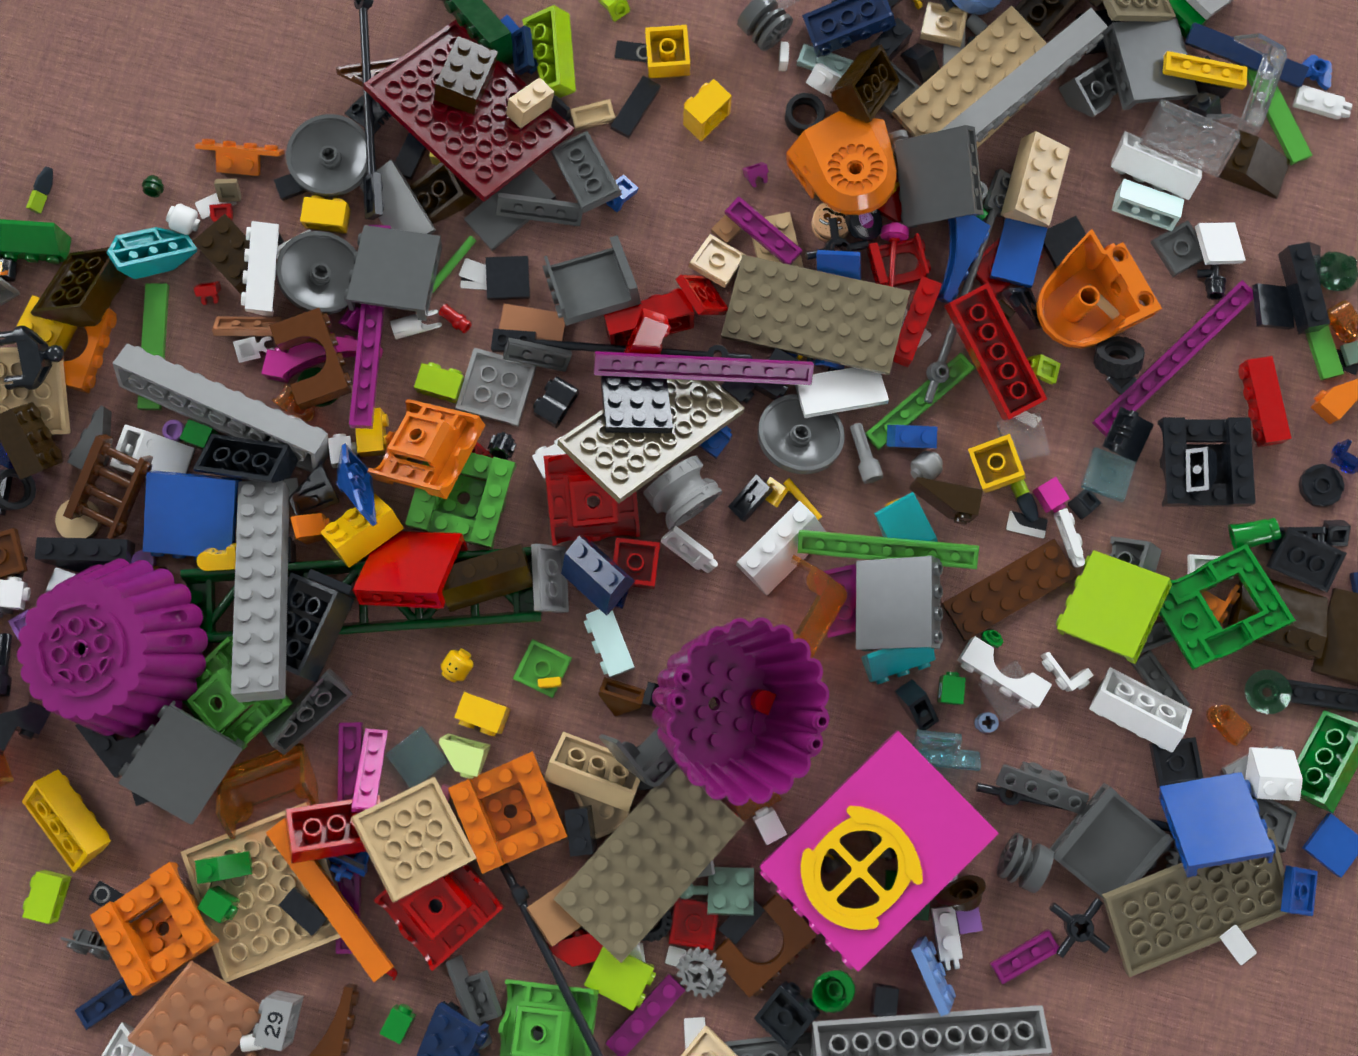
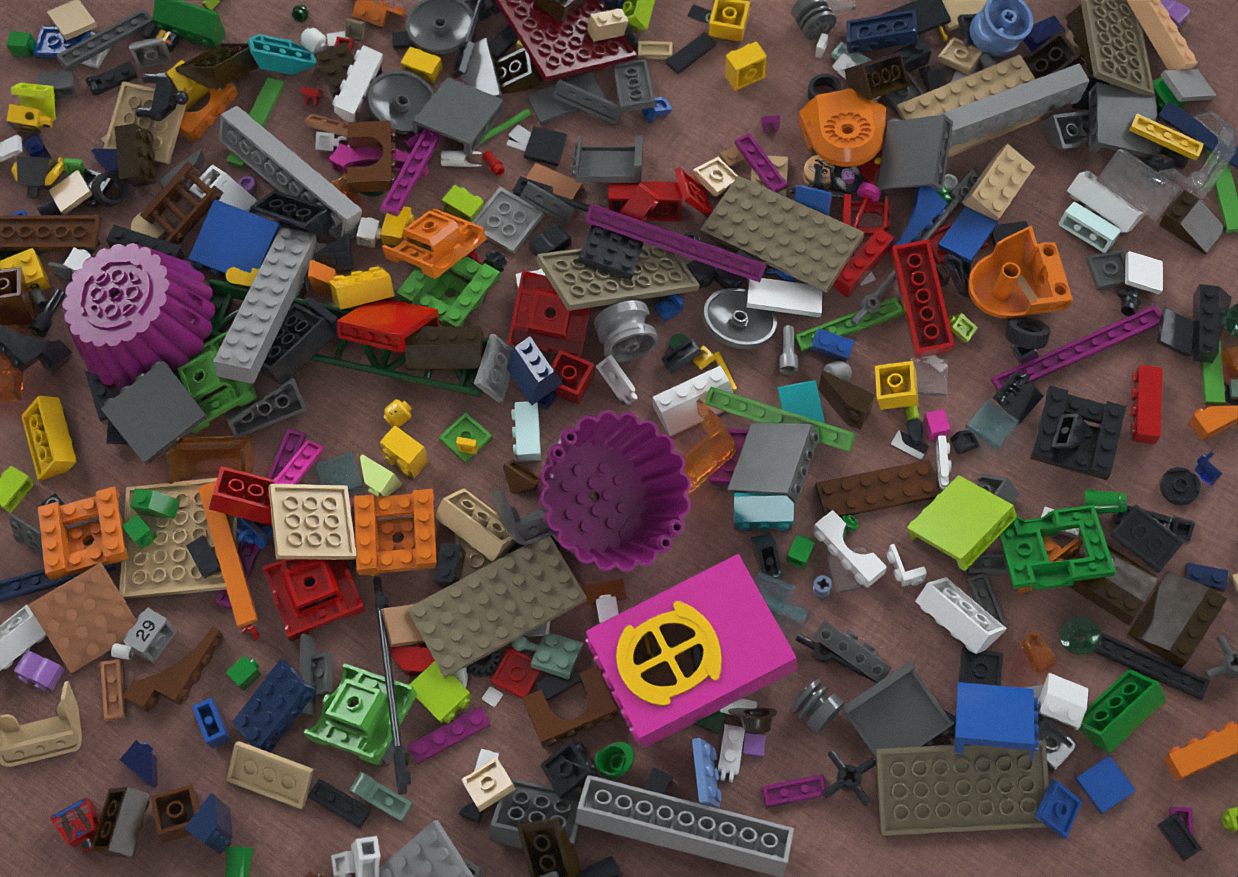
camera: 25 degrees right, 15 degrees down
(196, 434) = (261, 188): green brick -> none
(356, 483) = (370, 250): blue wedge -> none
(701, 972) = (508, 710): light grey gear -> none
(740, 479) = (677, 340): none -> dark green tile
(762, 701) = (636, 510): red tile -> none
(1238, 944) = (990, 840): white sticker -> none

